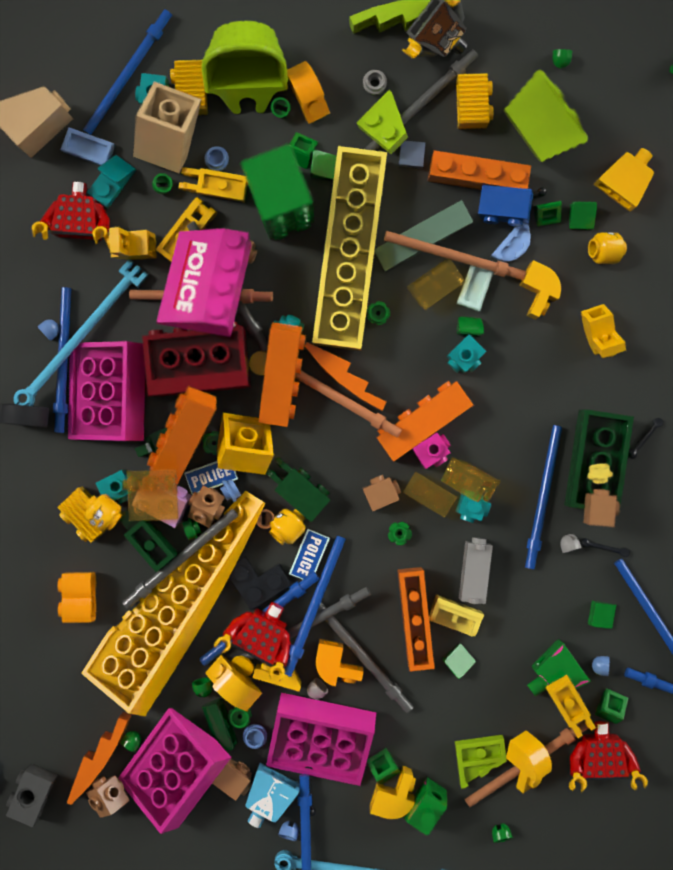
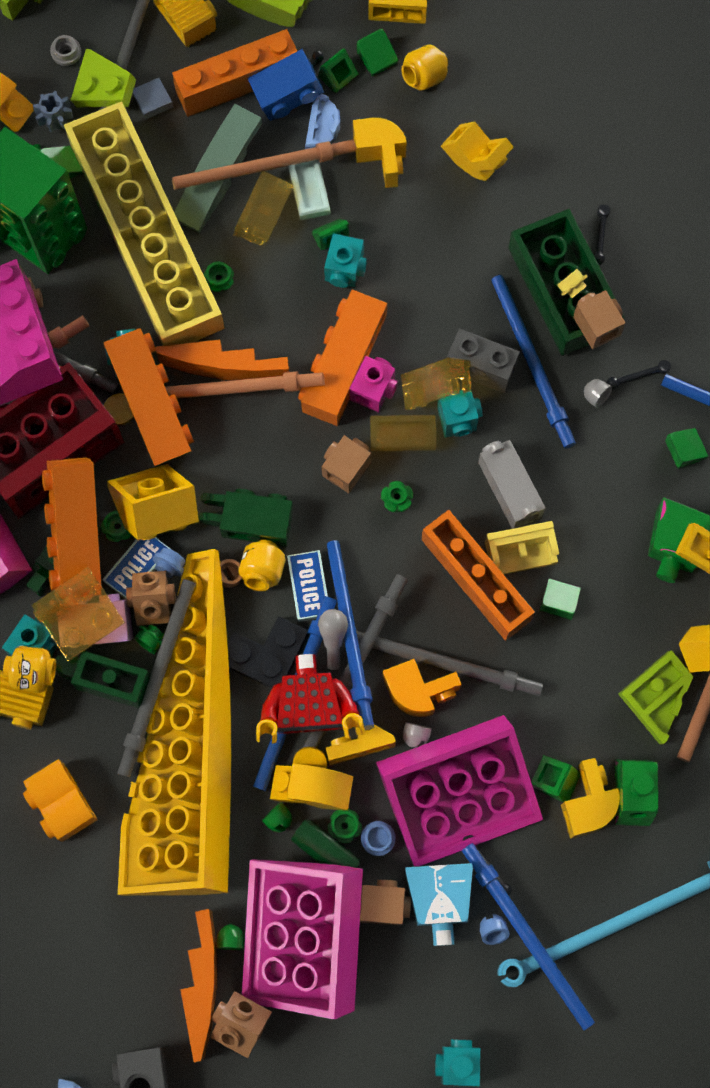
camera: 30 degrees left, 15 degrees down
(304, 599) = (333, 627): none -> light grey piece
(338, 118) = (52, 111): none -> sand blue gear
(512, 480) = (490, 361): none -> dark grey brick

